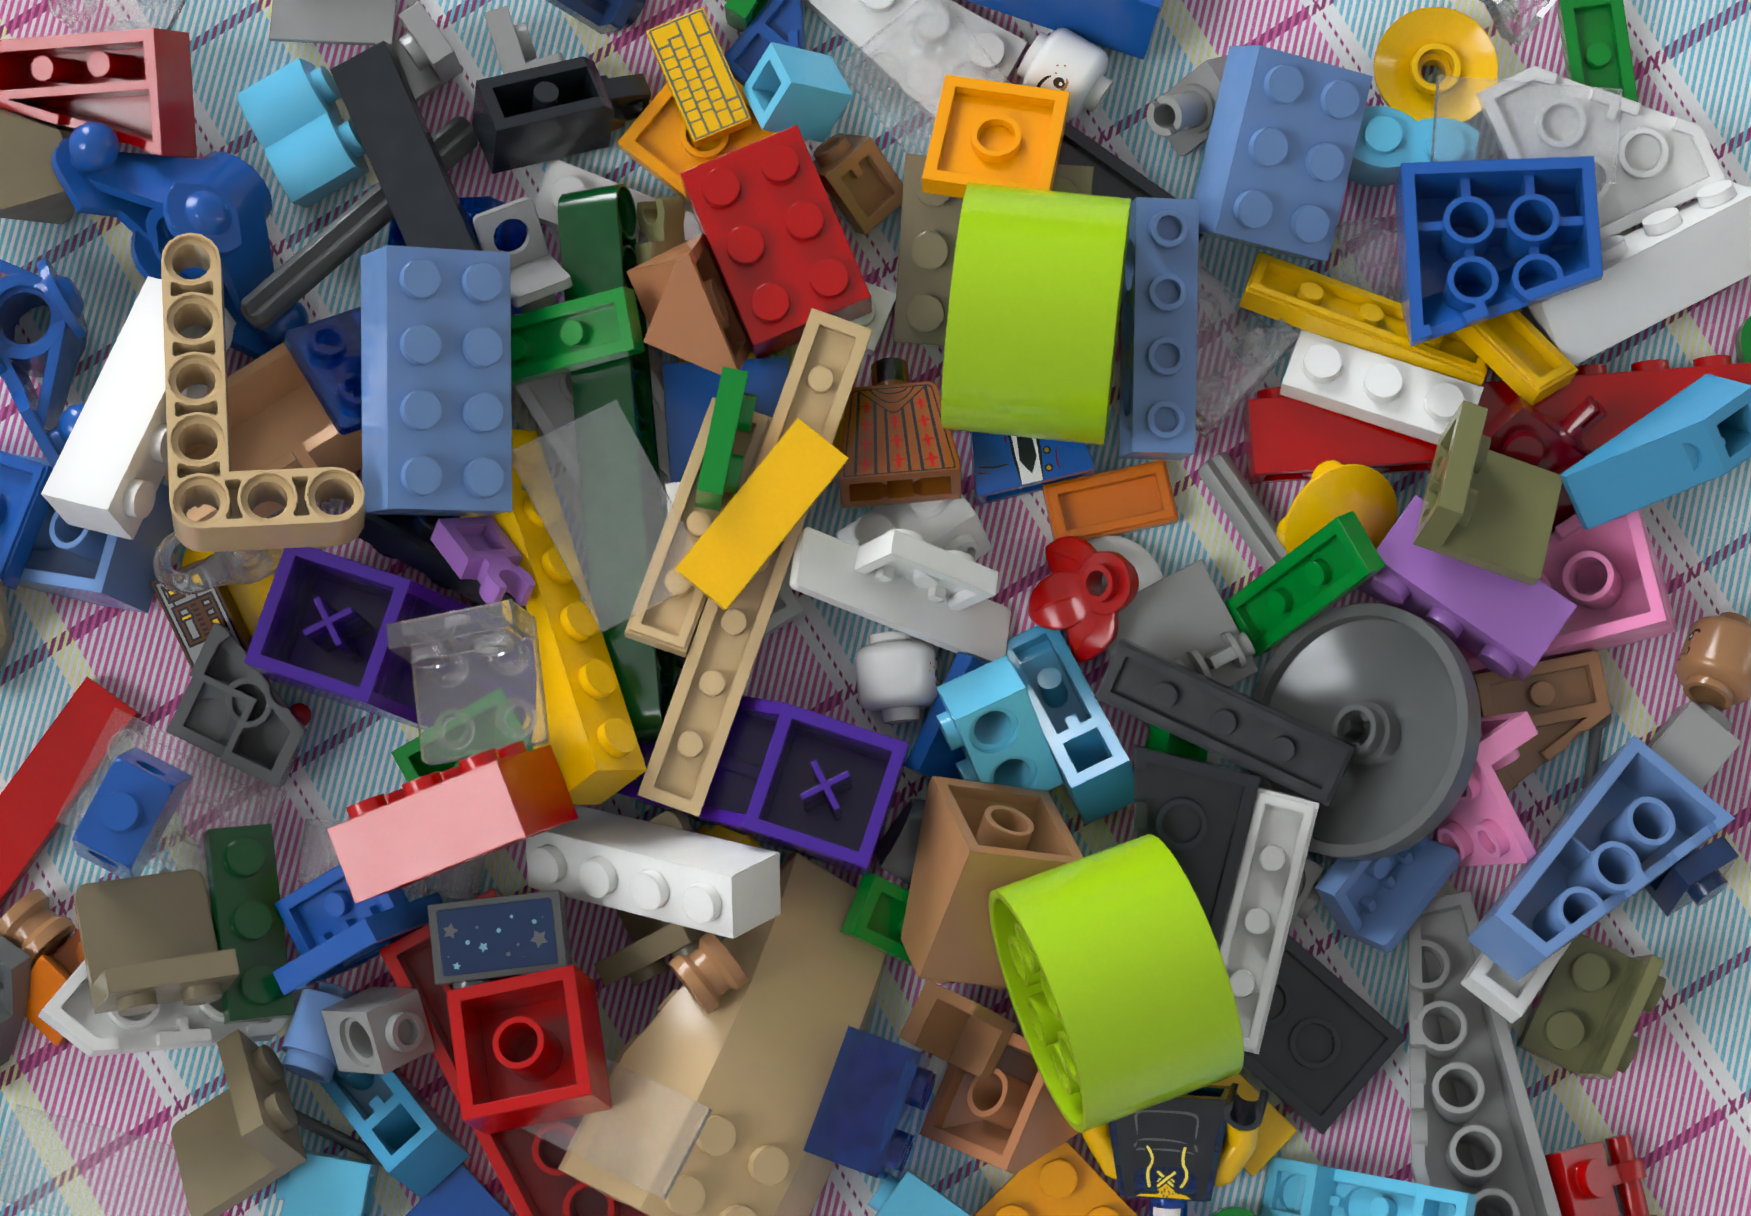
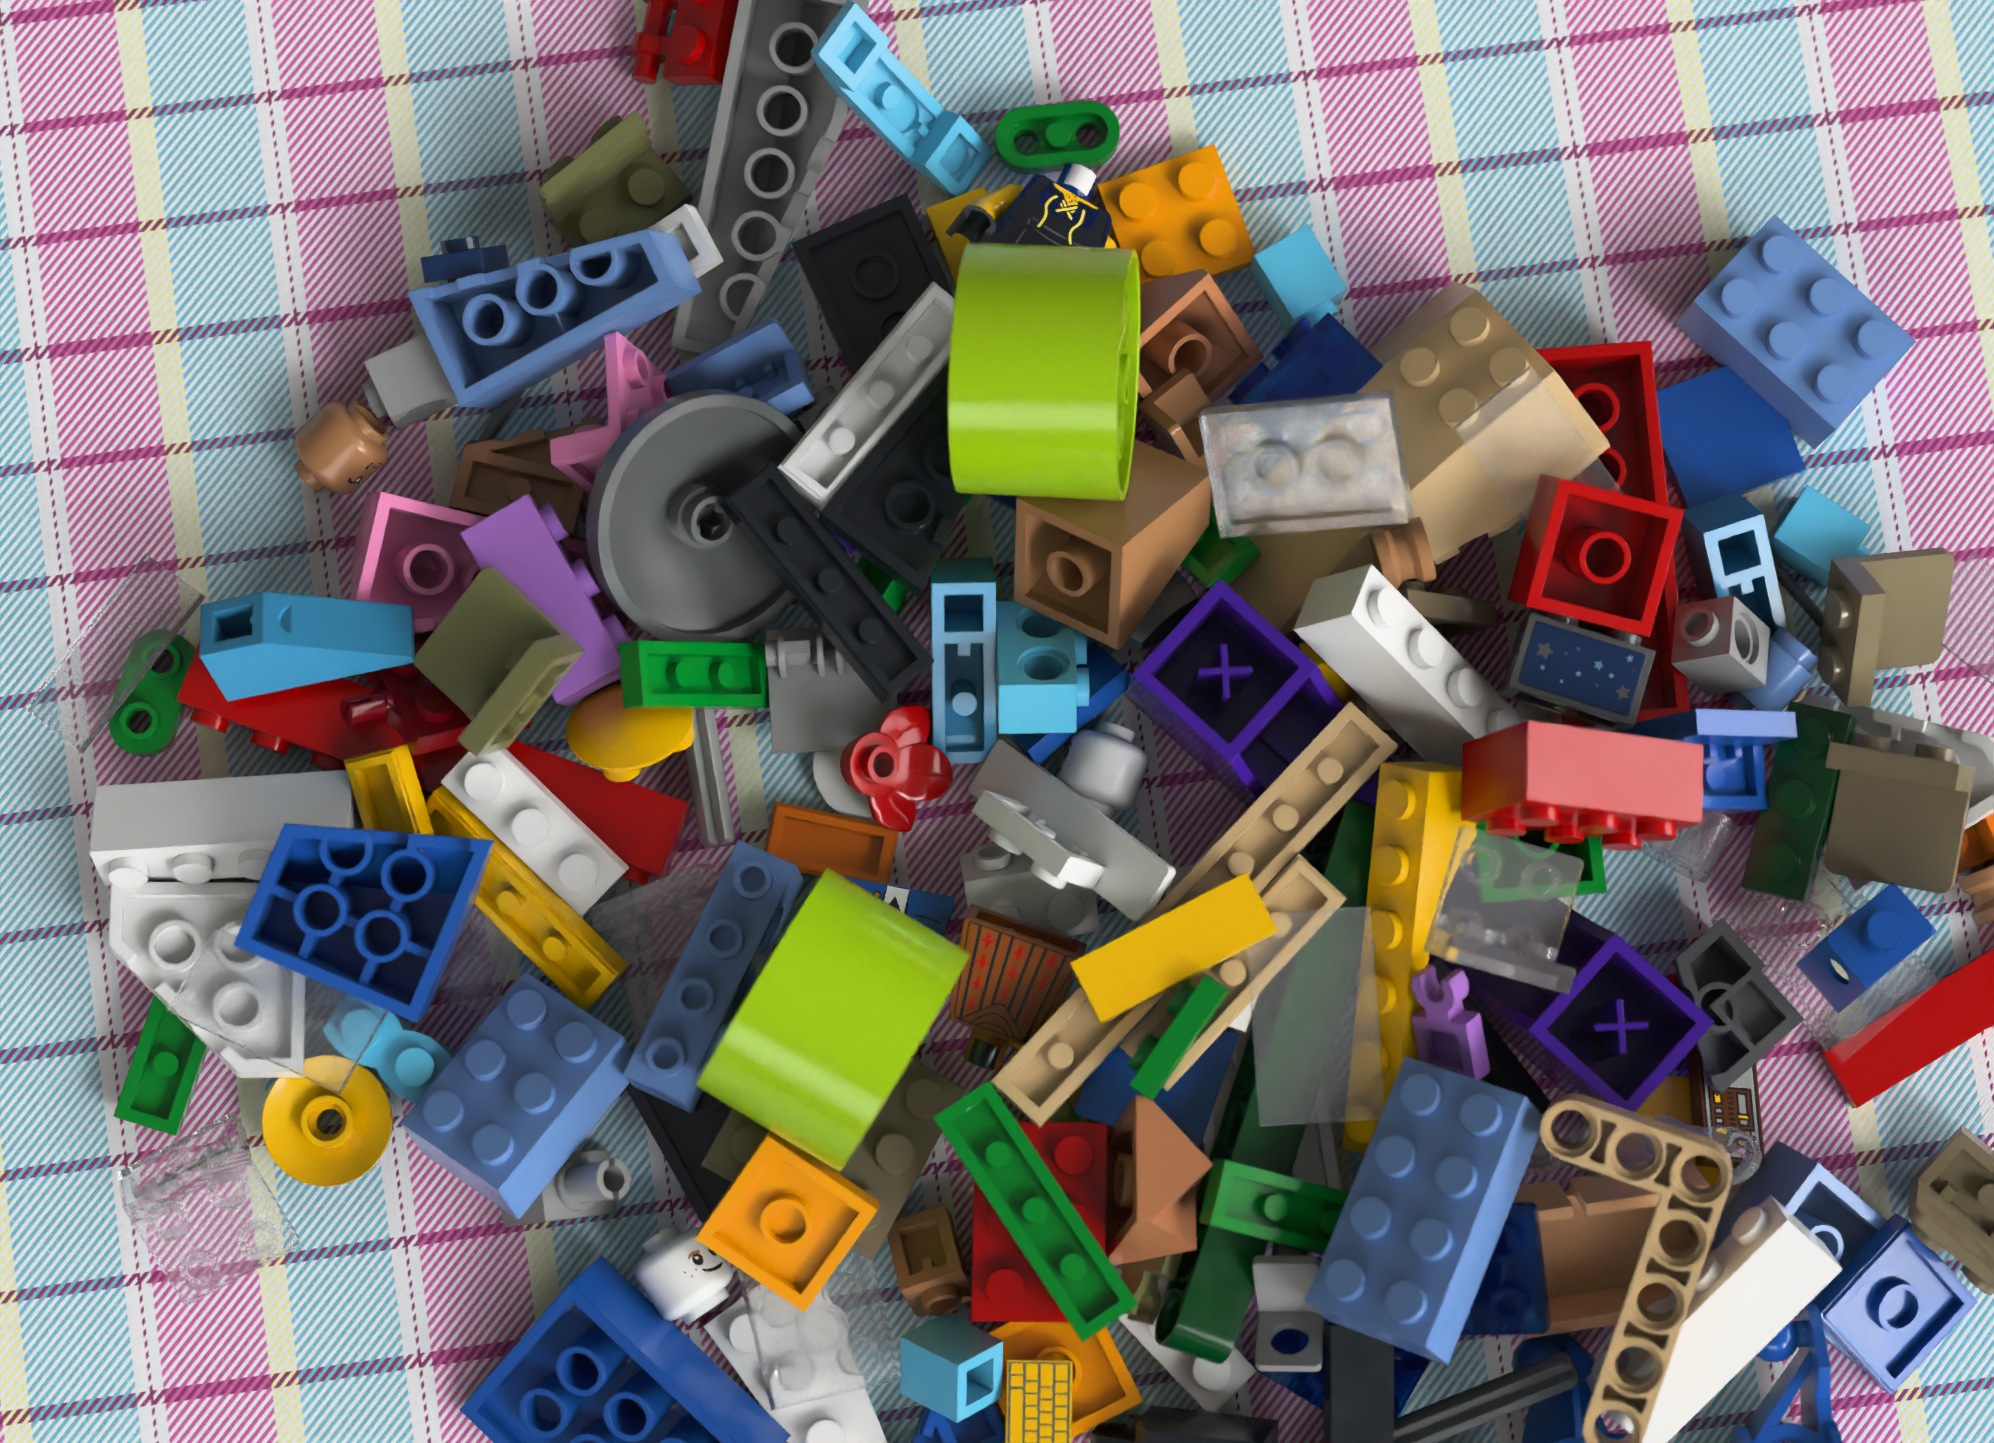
camera: 165 degrees left, 0 degrees up
(783, 232) = (1035, 1211): none -> green plate
(834, 1016) = (1306, 464): none -> clear plate

